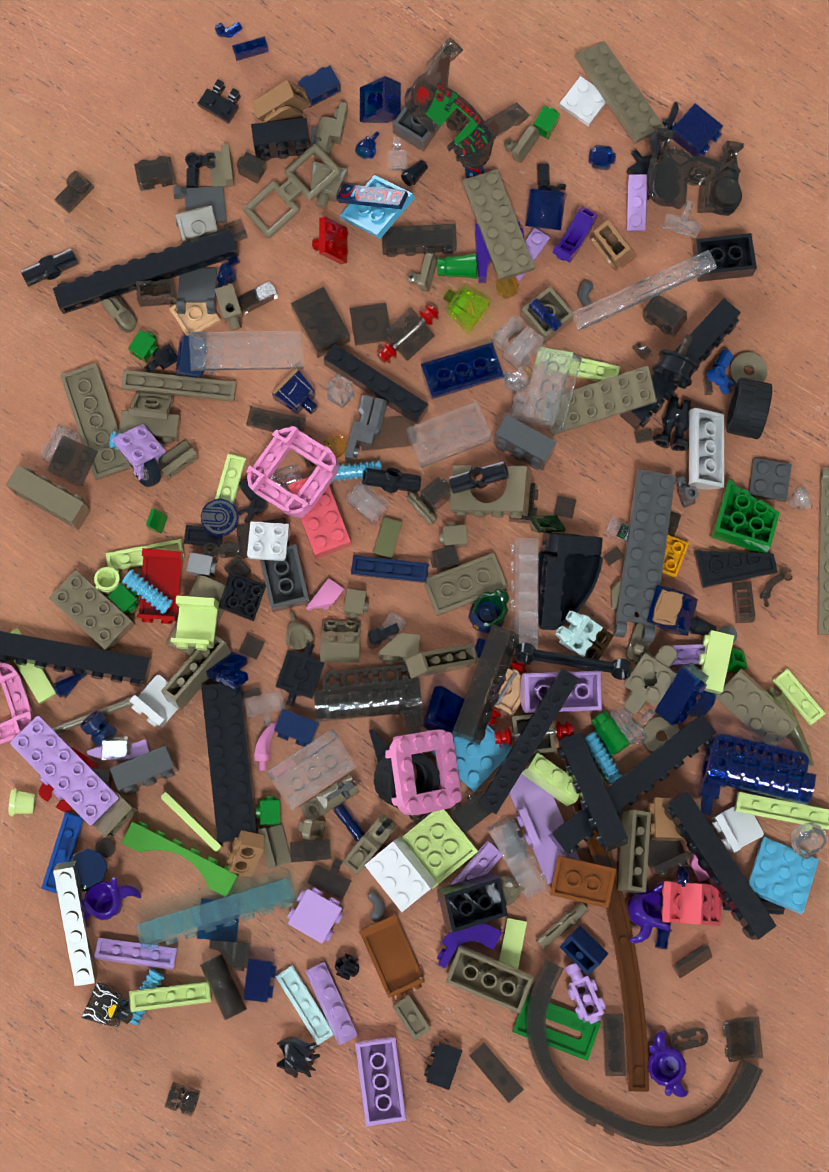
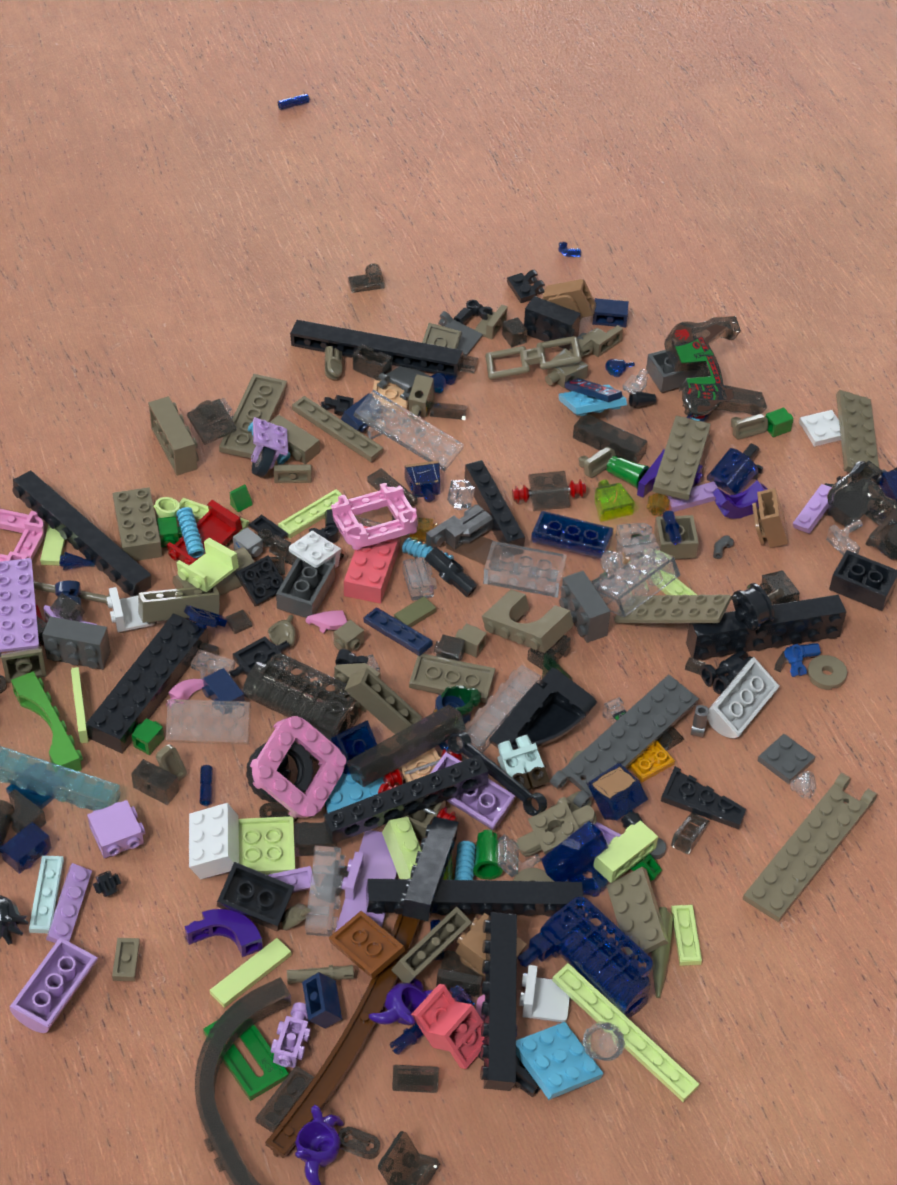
camera: 35 degrees right, 30 degrees down
(49, 267) = (307, 311): black piece -> none
(143, 346) = (332, 387): green brick -> none
(151, 405) = (304, 424): dark tan tile -> none
(154, 173) = (436, 298): clear smoke brick -> none
(219, 517) = (291, 521): tile -> none
(245, 853) = (103, 748): medium nougat brick -> none
(250, 48) = (576, 267): clear blue piece -> none
(275, 846) = (126, 761): dark tan panel -> none
(320, 321) = (484, 443): clear smoke brick -> none
(329, 798) = (208, 754): dark tan plate -> none
(330, 880) = (153, 816): clear smoke plate -> none
(332, 240) = (538, 401): red plate -> none
(340, 641) = (313, 653): dark tan slope -> none
(369, 323) = (519, 468): clear smoke tile -> none
(370, 843) = (206, 799): dark tan plate -> none
(378, 908) = (174, 860): dark grey arm -> none
(380, 101) = (649, 342): clear blue slope -> none
(392, 957) = (152, 901): dark orange panel -> none
(421, 508) = (460, 608): dark tan axle -> none
(436, 494) = (479, 598): clear smoke brick -> none
(443, 1065) = (119, 1013): black hinge -> none
(490, 474) = (523, 599): black piece -> none
(490, 979) = (219, 965): dark tan brick -> none
(496, 1072) = (160, 1053): clear smoke tile -> none
(565, 507) = (584, 675): clear smoke tile -> none
(602, 157) = (808, 466): clear blue head -> none
(613, 556) = (595, 732): clear smoke piece -> none
(644, 290) = (777, 561): clear plate -> none
(745, 520) = (737, 768): green wedge -> none
(749, 408) = (803, 685): black tyre -> none
(766, 591) = (724, 834): clear smoke piece -> none

